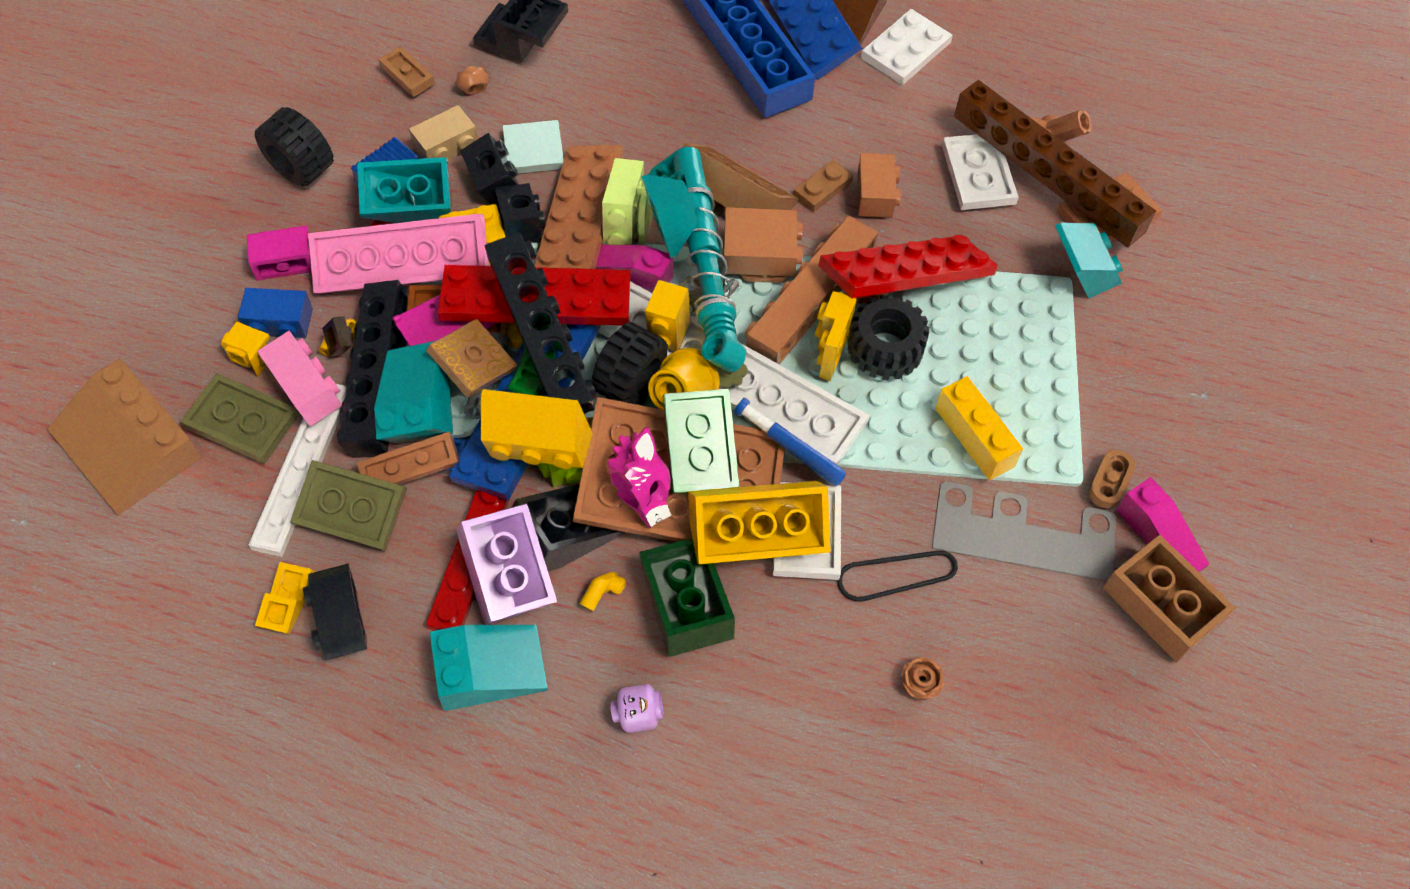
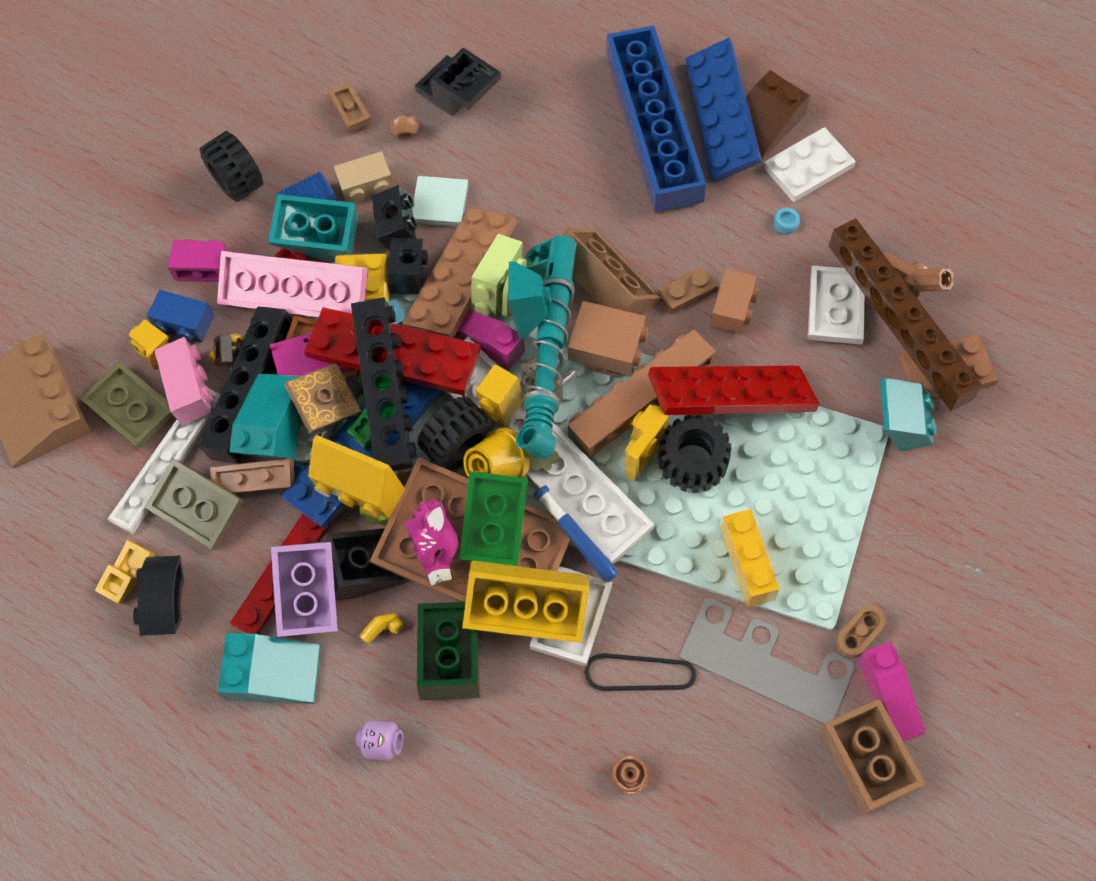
camera: 20 degrees right, 5 degrees up
(901, 102) = (786, 220): none -> medium azure tile

